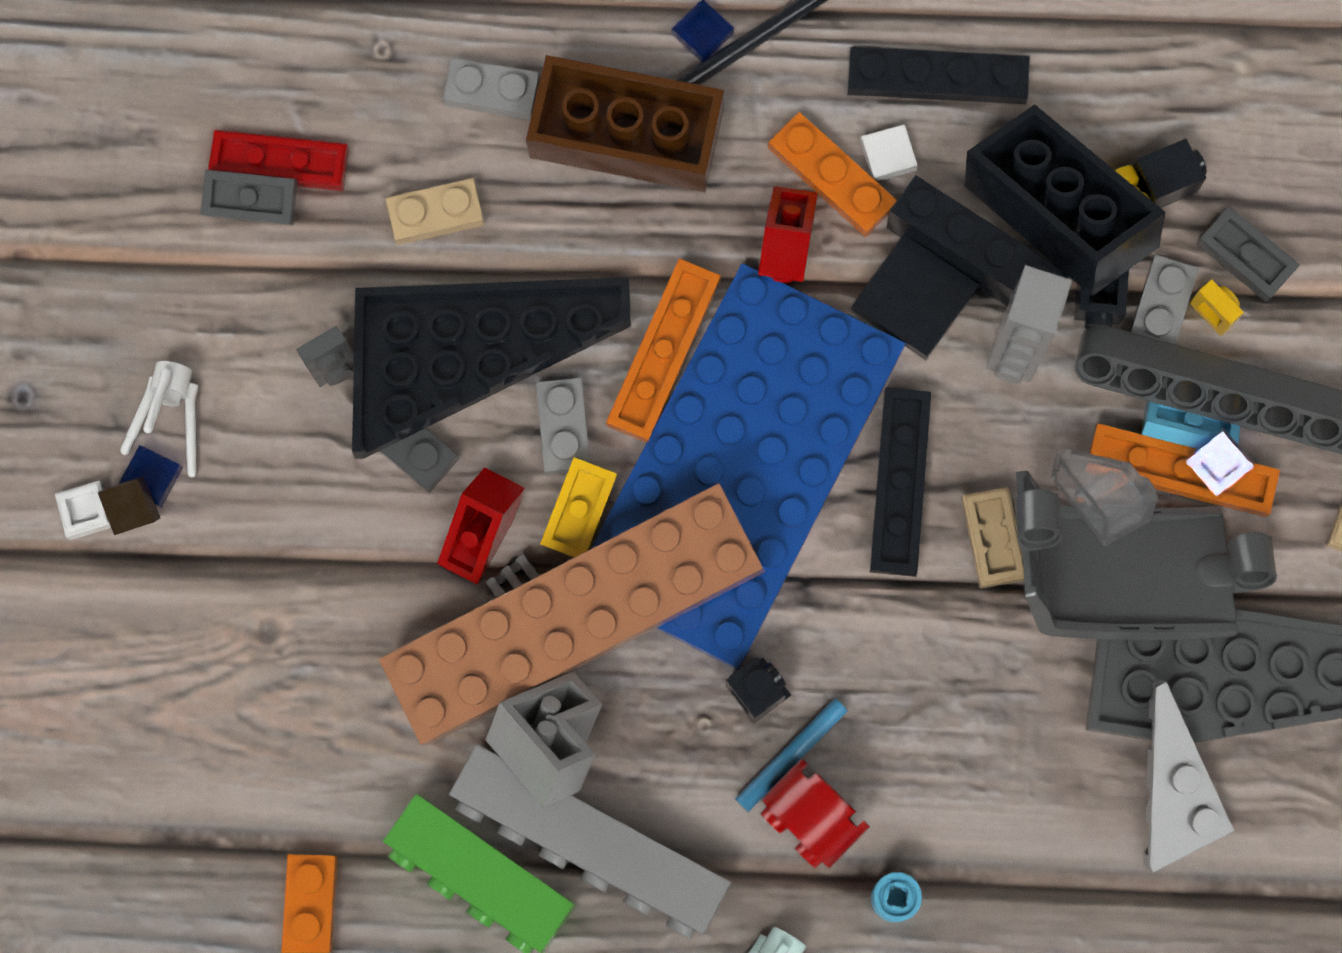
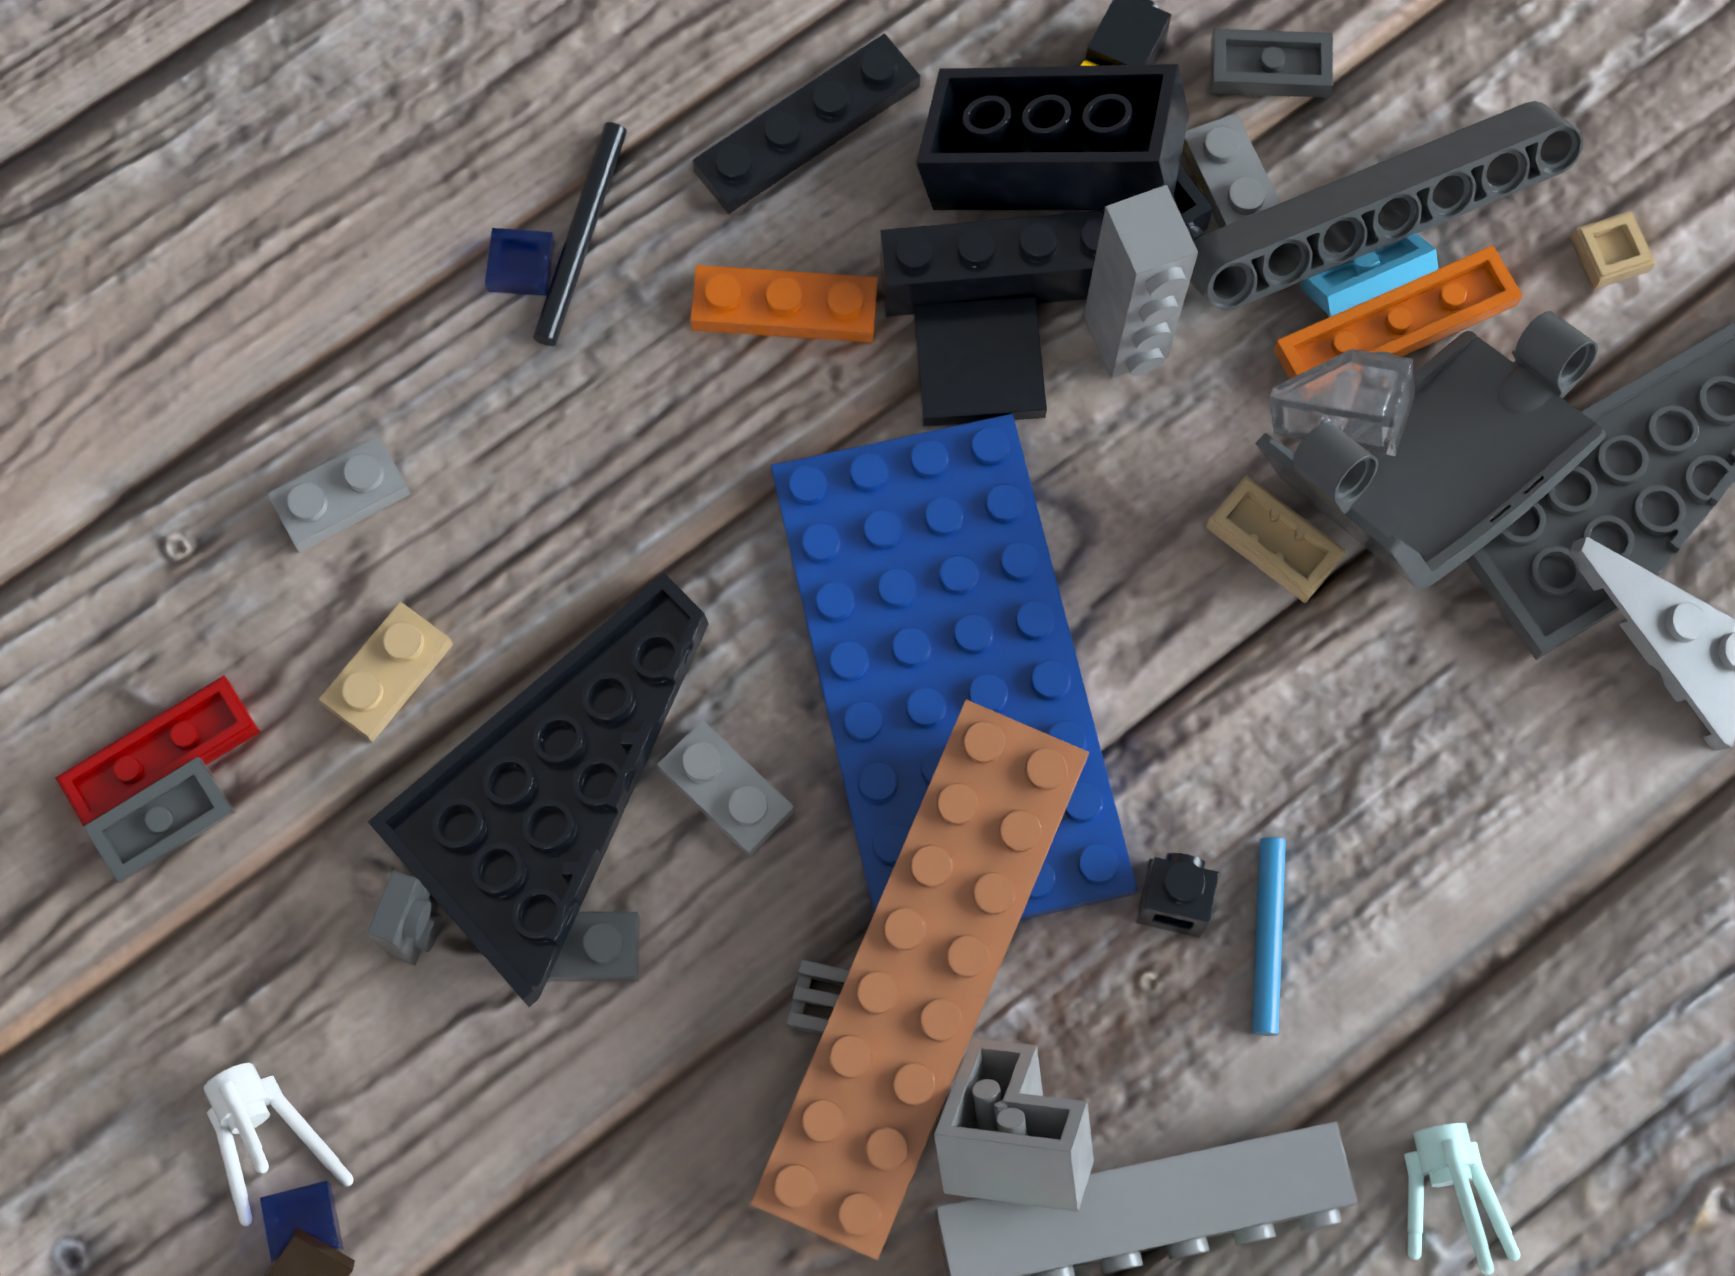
camera: 45 degrees left, 5 degrees down
(480, 524) = (728, 967): red slope -> none
(578, 508) = (822, 860): yellow plate -> none
(625, 123) = (524, 413): reddish brown brick -> none
(663, 350) = (767, 622): orange plate -> none
(787, 234) = (796, 397): red slope -> none
(813, 815) = (1357, 973): red brick -> none
(888, 153) = (825, 237): white tile -> none
(889, 900) = (1500, 1000): medium azure wheel -> none
(900, 482) = (1132, 559): black plate -> none
(1217, 306) = (1290, 135): yellow plate -> none
(1220, 462) = (1436, 279): clear blue plate -> none

